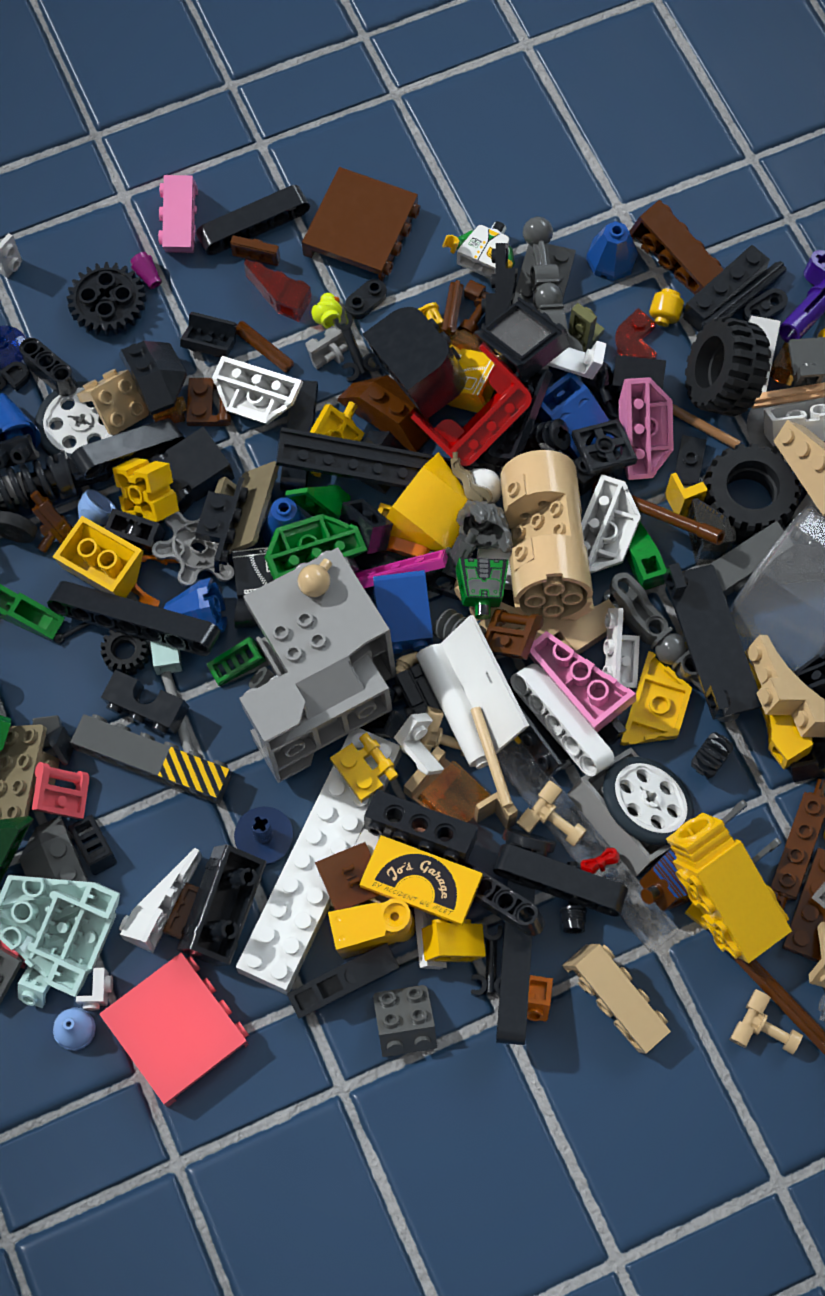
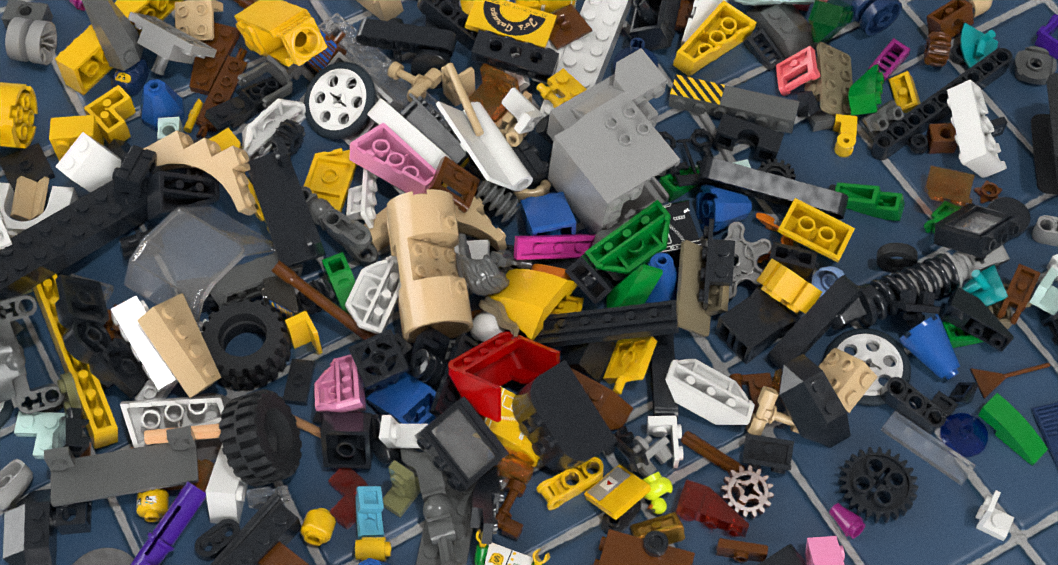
camera: 175 degrees right, 10 degrees down
(22, 701) = (846, 127): none -> yellow leg
(37, 327) = (928, 448): none -> clear tile
(54, 525) = (866, 267): reddish brown piece -> none
(152, 857) = (716, 36): none -> yellow wedge
(198, 372) = (767, 413): none -> tan bar
(216, 655) = (705, 147): none -> black piece
(238, 300) = (754, 497): none -> gear
(308, 372) = (663, 425): none -> white bracket
(315, 579) = (622, 164): tan piece -> none
(333, 282) = (667, 524): none -> pearl gold slope
(338, 249) = (655, 543): none -> black tile
(366, 306) = (617, 492): none -> yellow tile
(452, 308) = (533, 494): reddish brown axle -> none
(481, 584) = (482, 224): torso -> none
(608, 857) = (383, 53): red piece -> none
(612, 283) = (372, 548): none -> yellow brick
(615, 315) = (368, 511): none -> medium azure slope
(674, 543) = (324, 288): none -> black gear
(738, 776) = (258, 134): none -> white wedge
(773, 811) = (243, 106): none -> black slope

